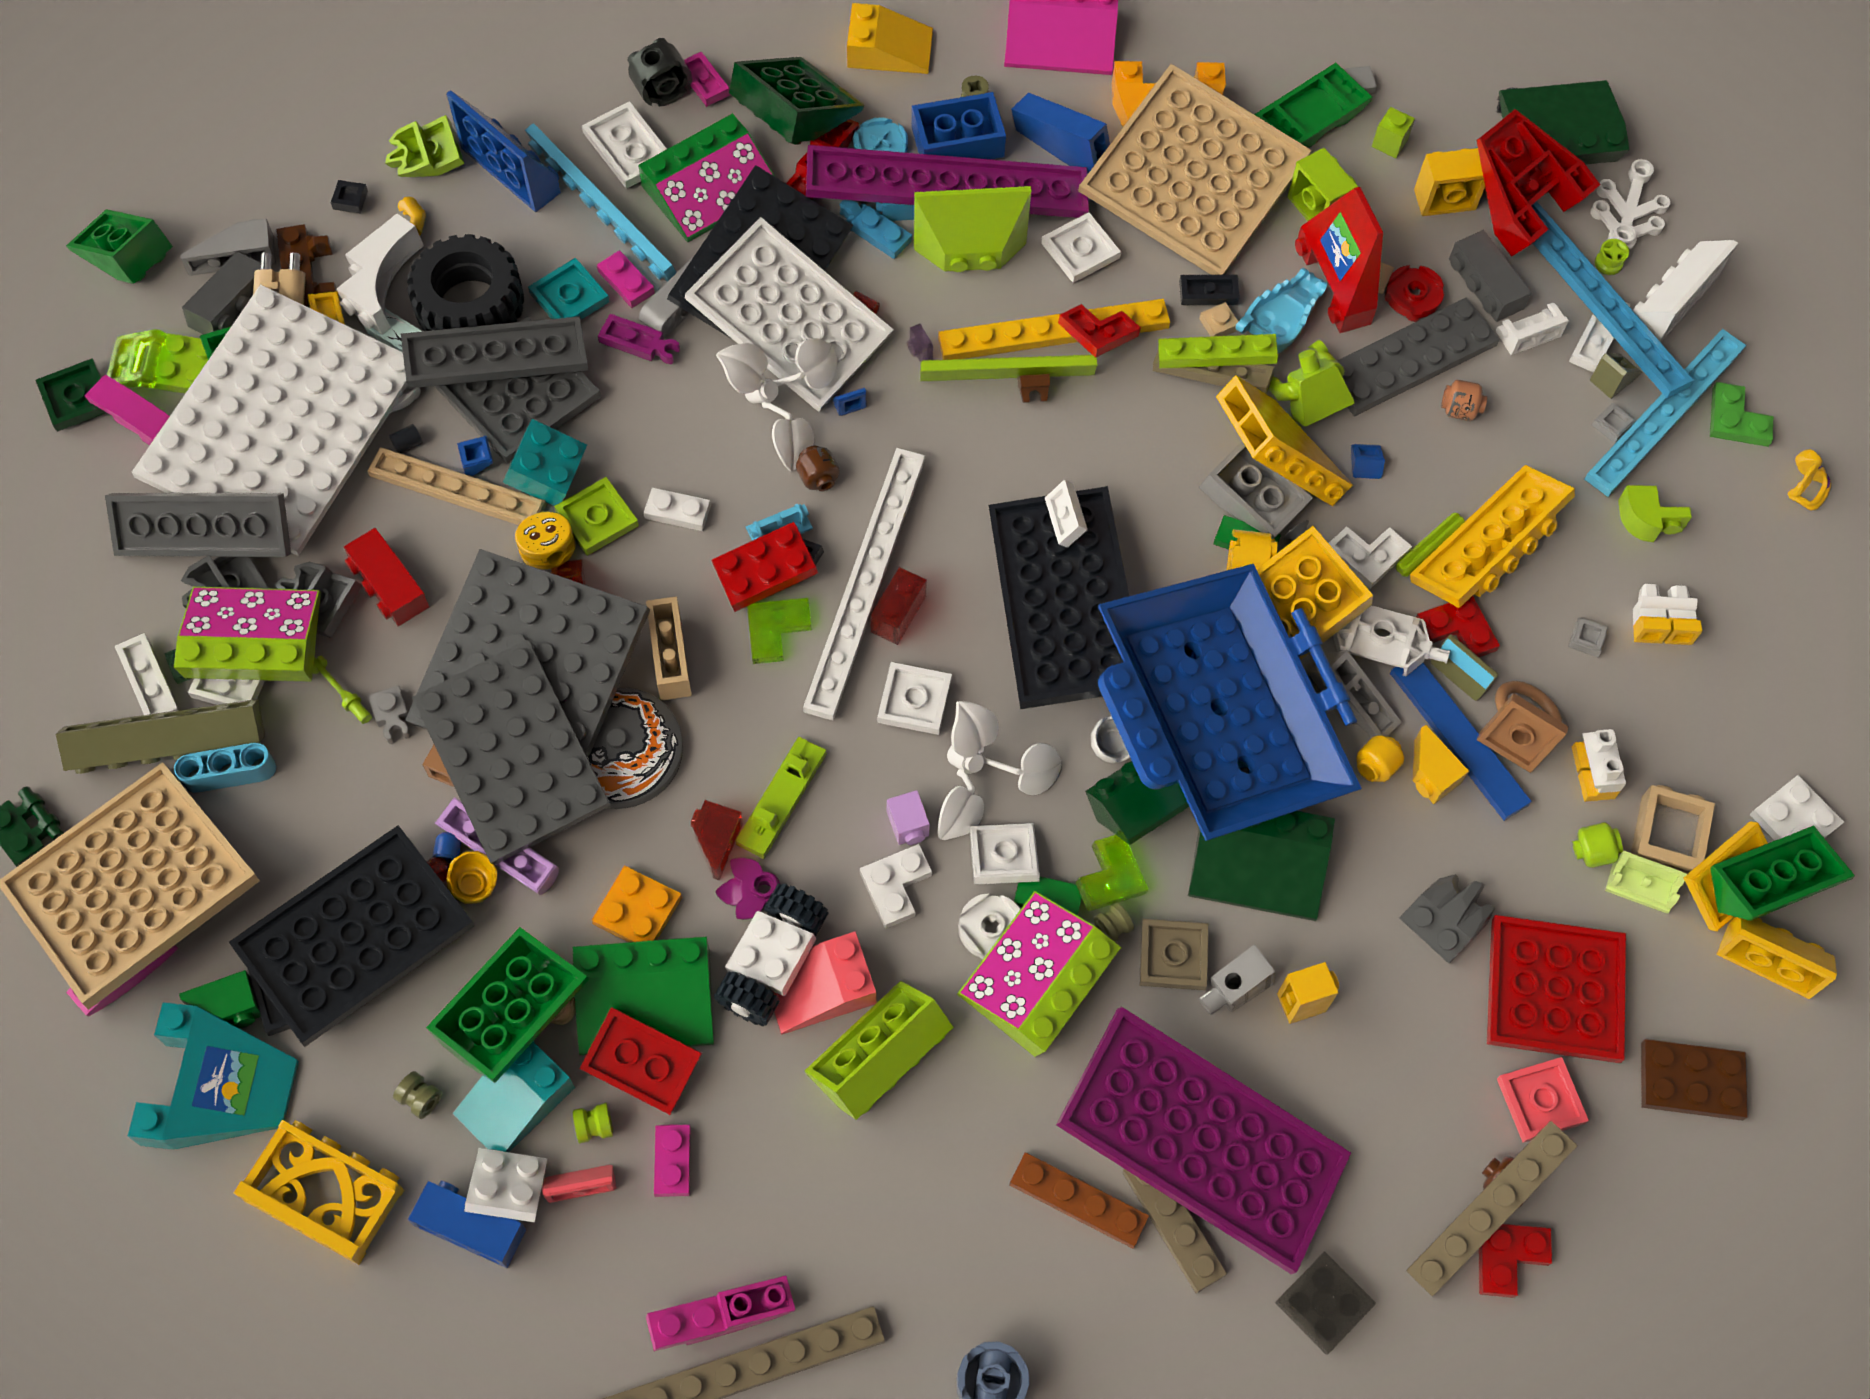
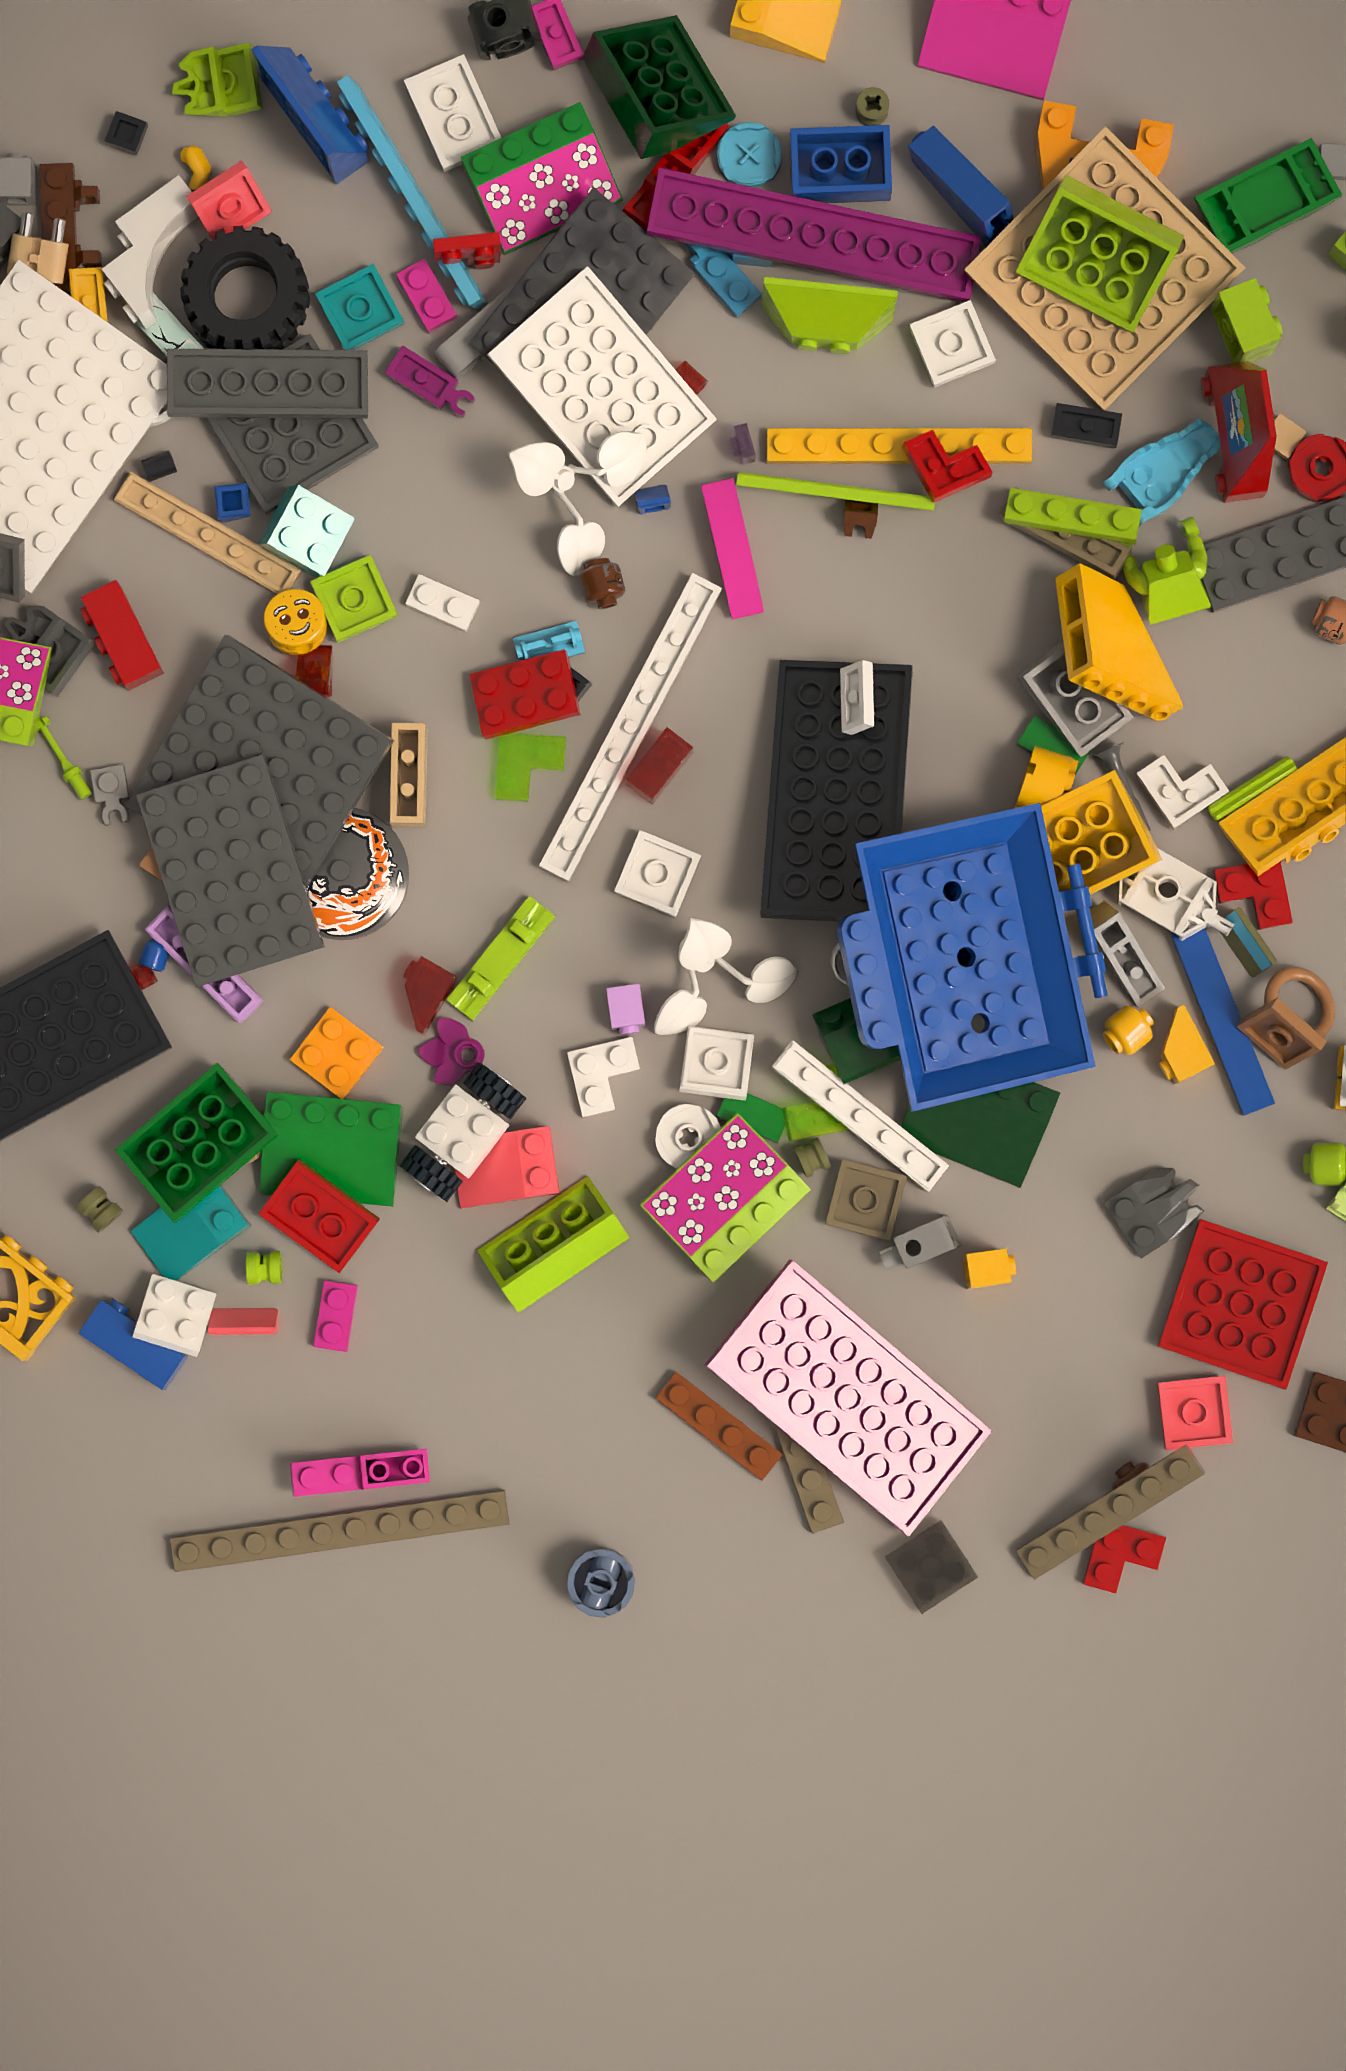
camera: 15 degrees right, 20 degrees up
(441, 218) = (229, 201): none -> coral plate
(471, 877) = (175, 995): yellow hair -> none
(663, 224) = (478, 249): none -> red plate
(927, 424) = (732, 548): none -> dark pink slope
(1151, 875) = (859, 1116): none -> white tile
(1189, 152) = (1099, 253): none -> lime slope
(1219, 320) = (1089, 466): tan plate -> none
(1367, 461) = (1211, 673): blue slope -> none

